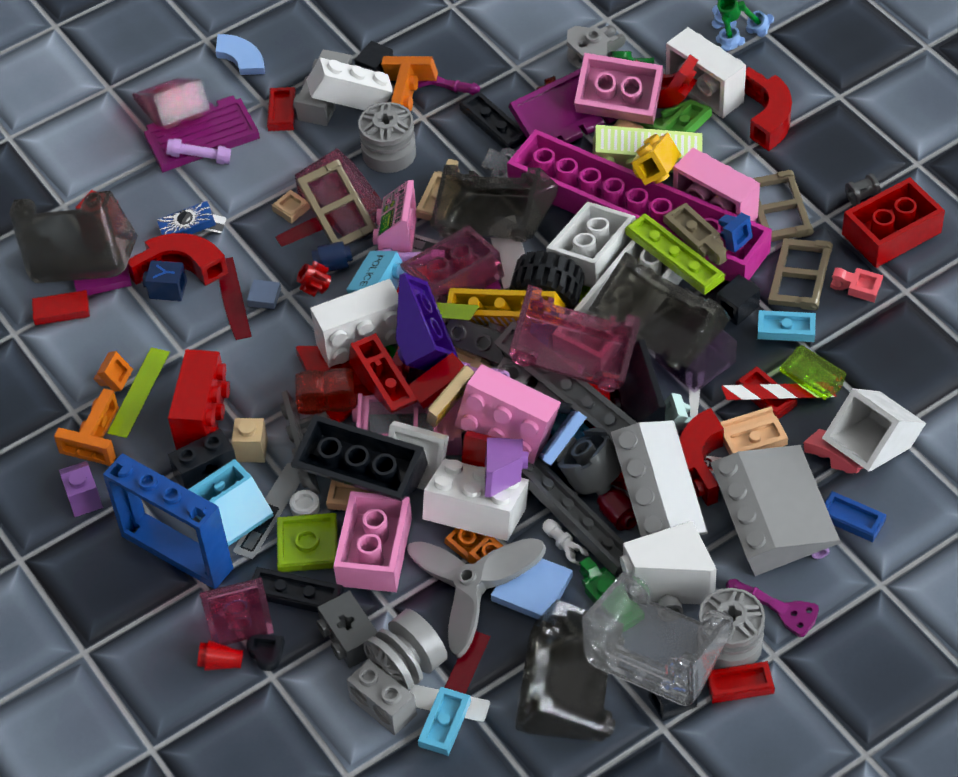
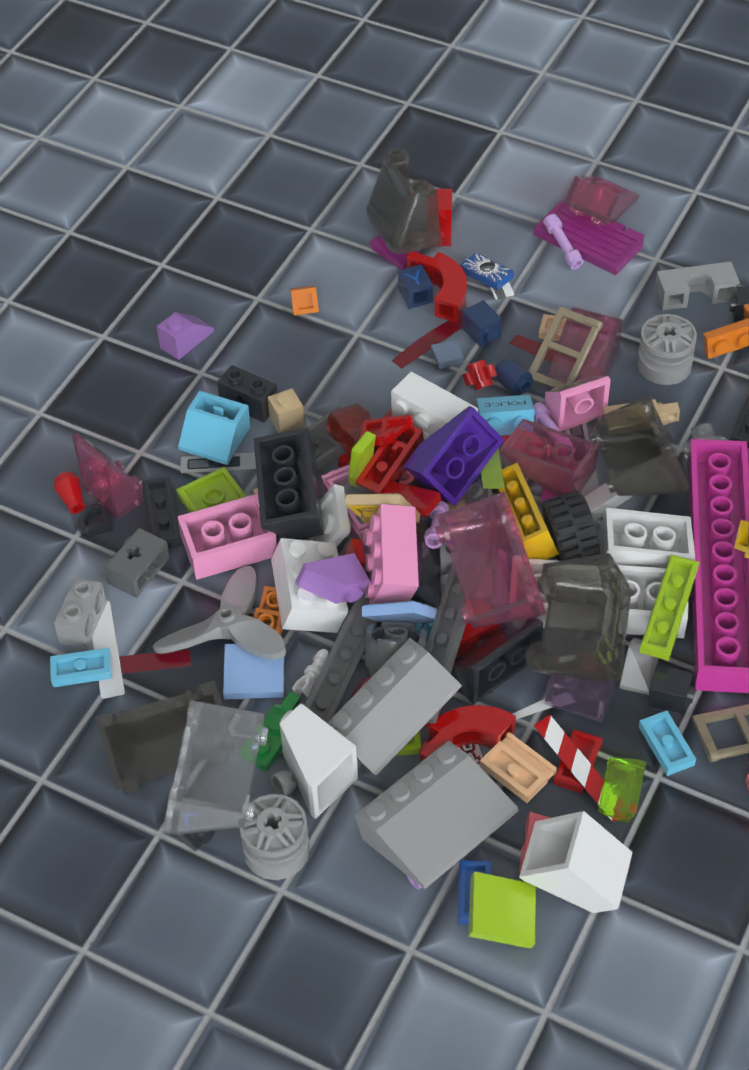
camera: 60 degrees right, 0 degrees up
(60, 307) = (351, 241): red tile -> none
(89, 441) = (242, 315): orange bracket -> none
(132, 481) = (161, 383): blue window -> none
(138, 392) = (301, 327): lime sticker -> none
(198, 397) = (299, 357): red brick -> none
(241, 52) = (696, 219): light blue tile -> none
(252, 251) = (481, 323): none -> dark blue brick
(281, 109) = (645, 275): red tile -> none
(304, 503) = (247, 479): white tile -> none
(348, 84) = (697, 294): white brick -> none
(356, 361) = (387, 428): none -> red tile
(376, 391) = (361, 455): none -> lime tile
(406, 648) = (124, 604): light grey wheel -> none
(677, 411) = (503, 691): light aqua tile -> none
(696, 233) = (703, 611): dark tan hinge -> none
(736, 231) = (725, 641): blue tile -> none
(740, 682) = (235, 873): red tile -> none
(784, 610) = (334, 877): magenta piece -> none
(883, 501) = (502, 910): none -> lime tile

